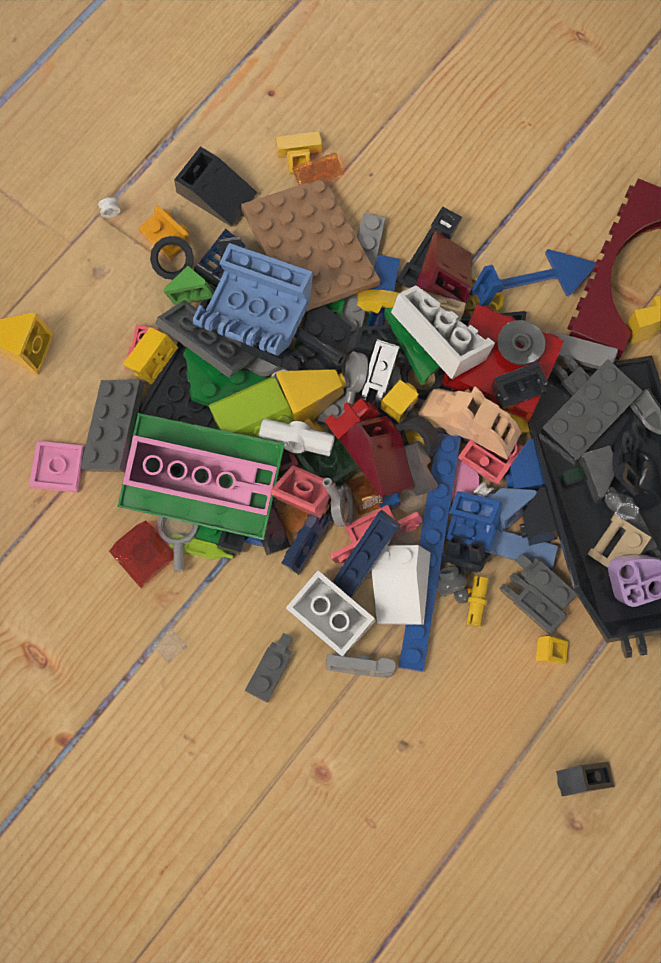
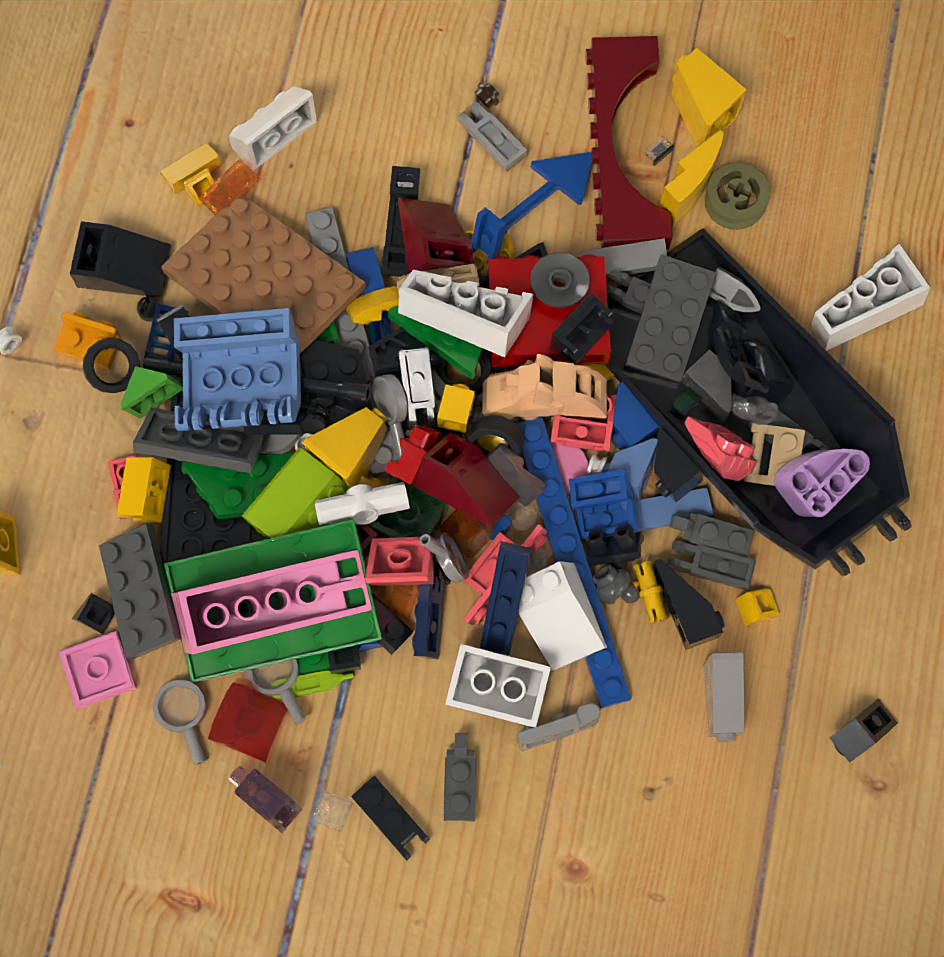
camera: 25 degrees left, 0 degrees up
(75, 426) = (95, 613): none -> black slope
(100, 522) = (180, 709): none -> piece
(126, 612) = (264, 797): none -> torso
(207, 668) = (388, 815): none -> black hinge
(215, 225) = (148, 316): none -> black hinge
(371, 141) = (274, 126): none -> white slope
(493, 702) = (725, 695): none -> light grey slope
(499, 629) = (690, 611): none -> black slope
(528, 219) = (493, 137): none -> light grey hinge
(539, 186) = (487, 94): none -> dark brown plate
(582, 522) = (722, 449): none -> coral slope
(648, 283) = (659, 150): none -> clear piece

